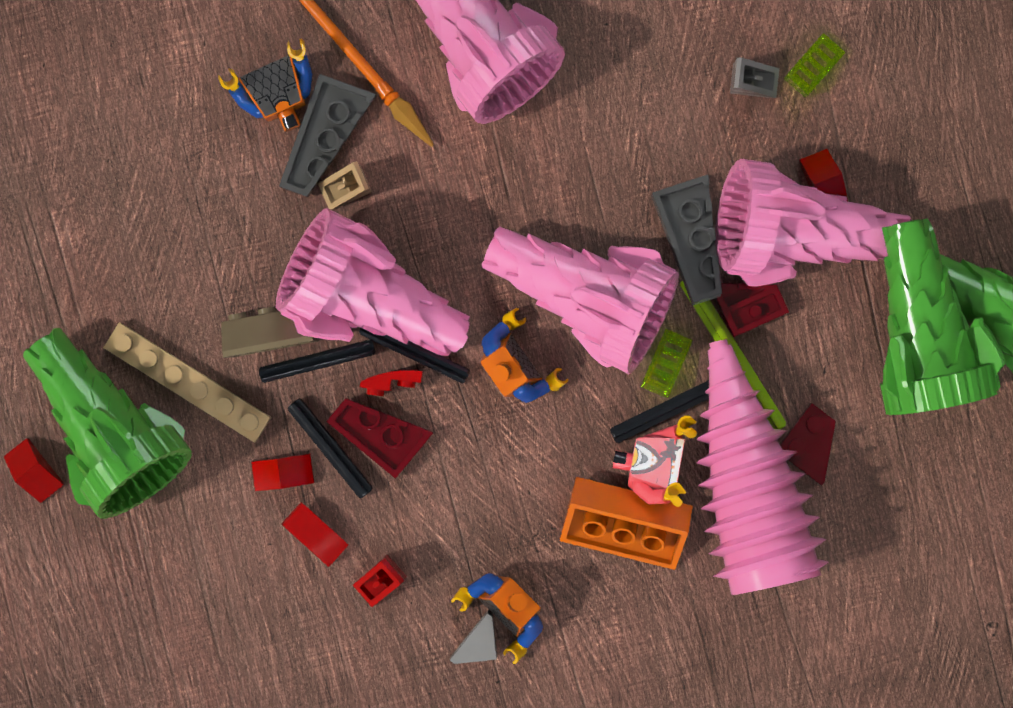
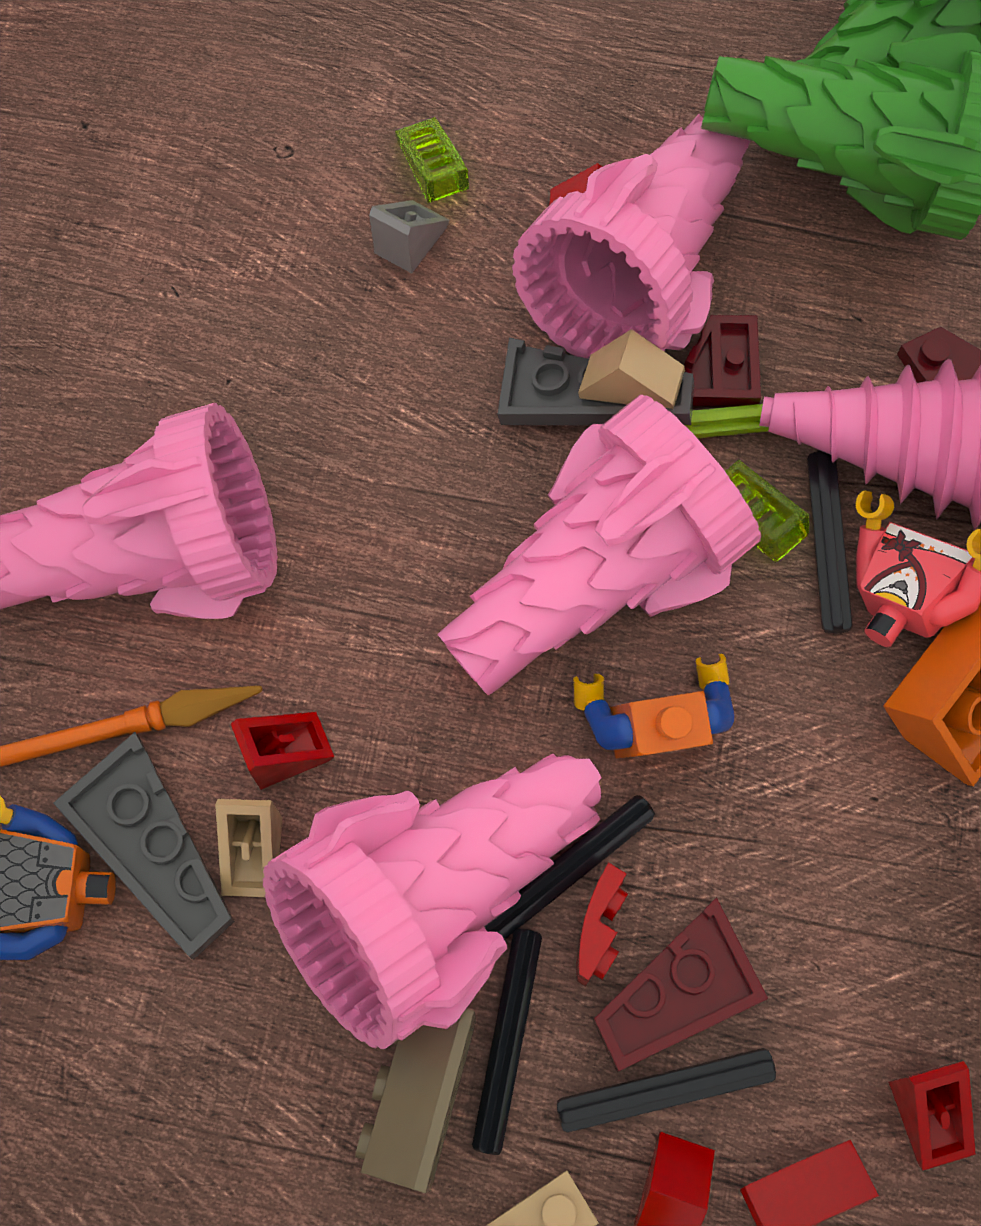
camera: 65 degrees left, 20 degrees down
(406, 174) = (281, 745): none -> red slope
(704, 259) = (629, 369): none -> tan slope

